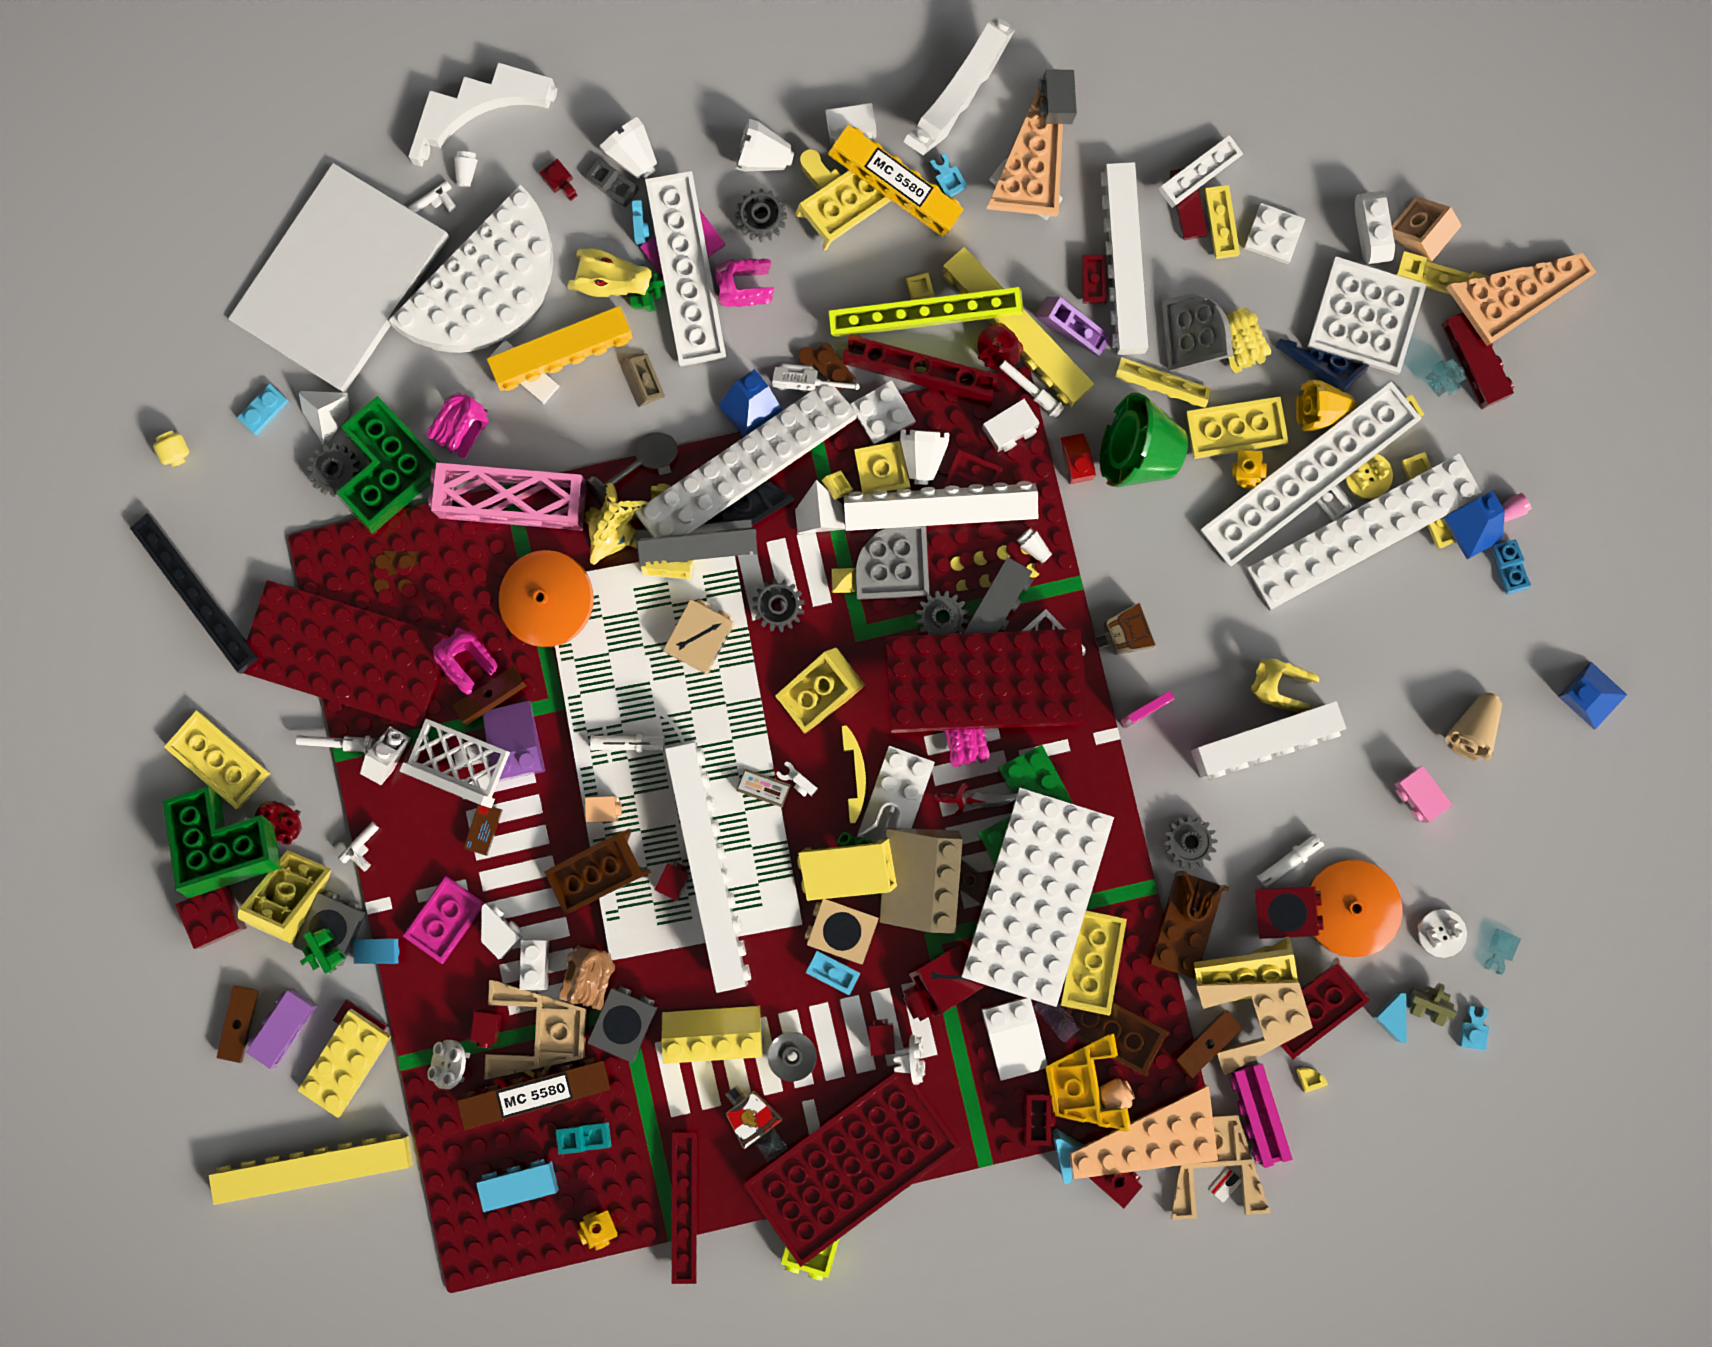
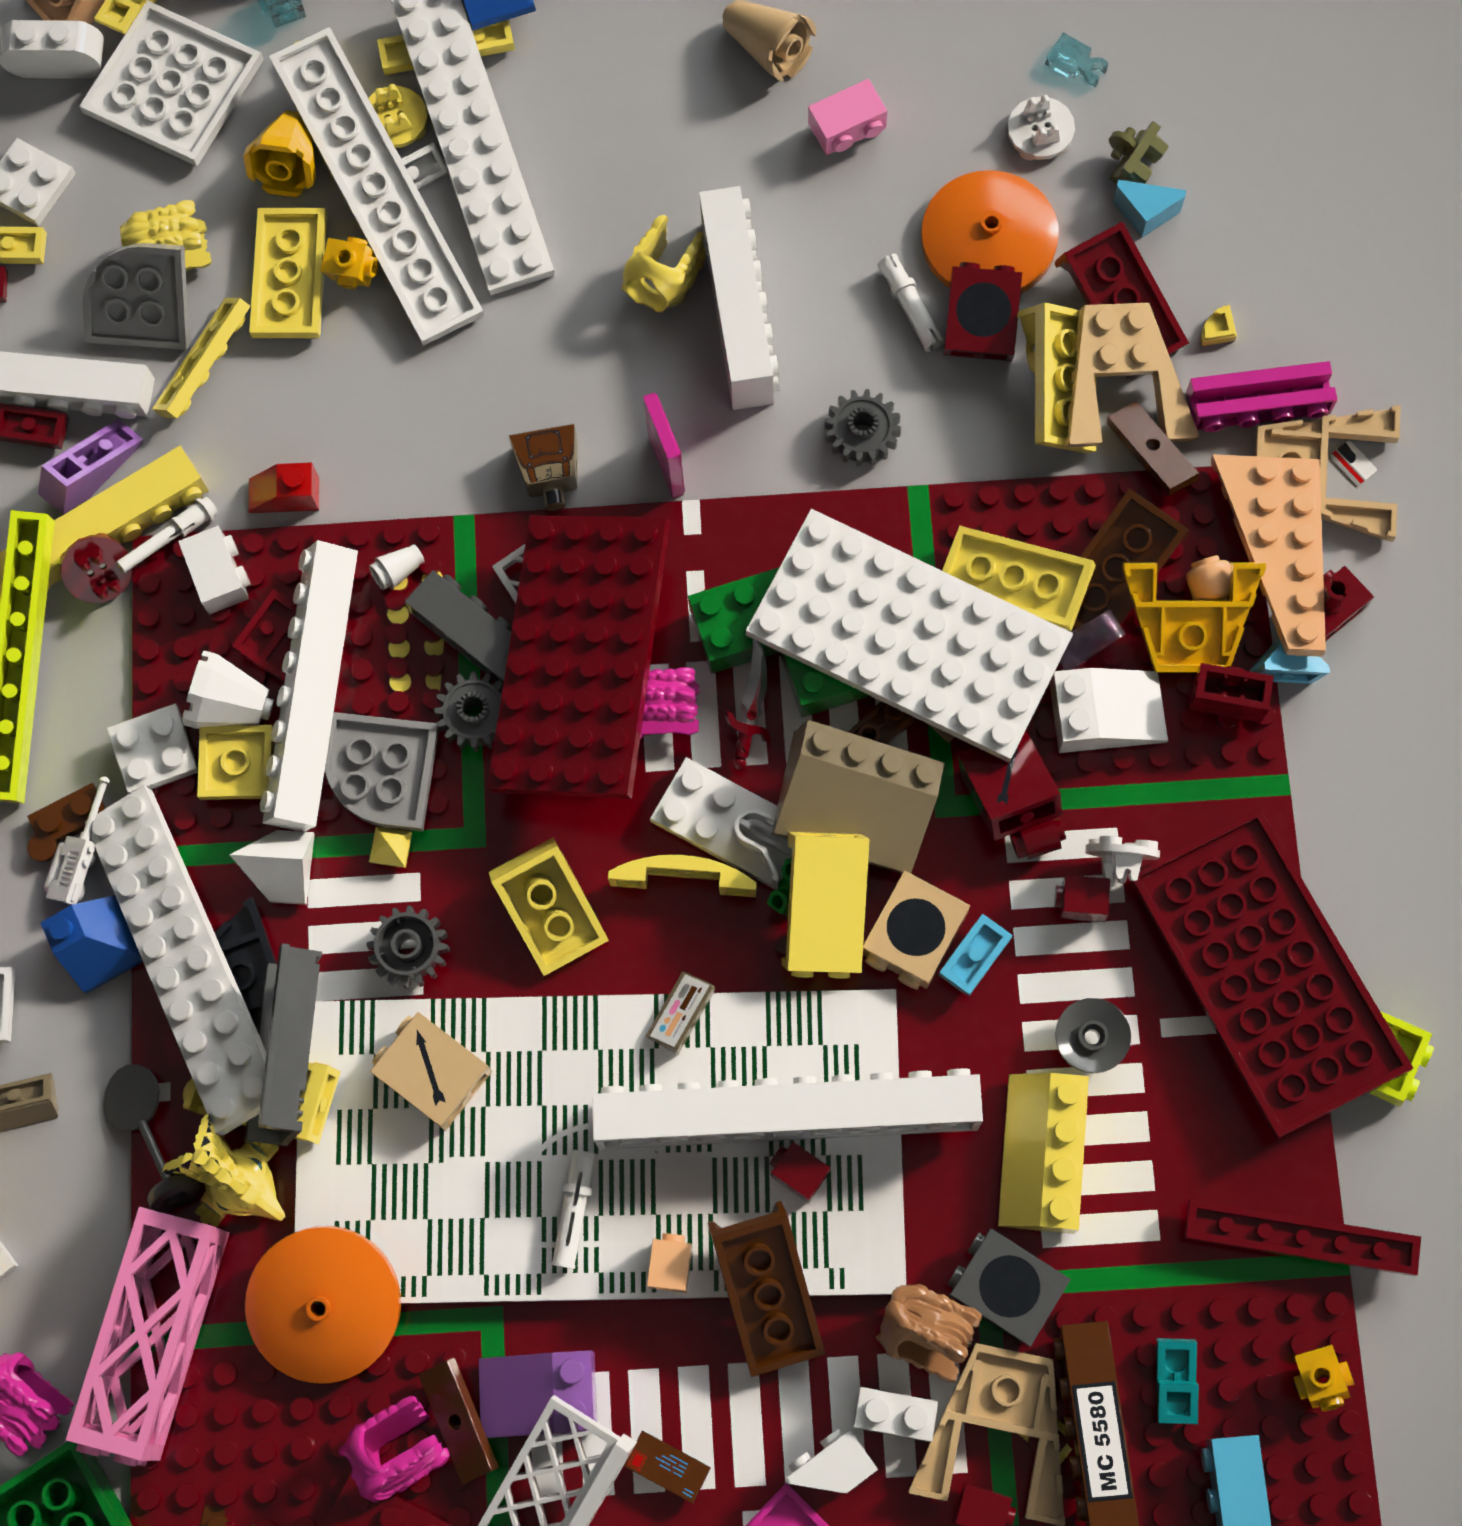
camera: 75 degrees left, 10 degrees down
(750, 1116) = (1175, 1112): torso -> none
(770, 1145) = (1221, 1092): clear light blue slope -> none
(802, 785) = (685, 953): white plate -> none
(837, 485) = (245, 830): light yellow tile -> none
(902, 363) = (89, 710): dark red piece -> none
(1141, 444) = (279, 394): green cone -> none
(1186, 924) = (978, 451): reddish brown plate -> none
(1326, 365) = (225, 146): dark blue wing -> none
(1474, 1033) = (1182, 112): medium azure plate -> none

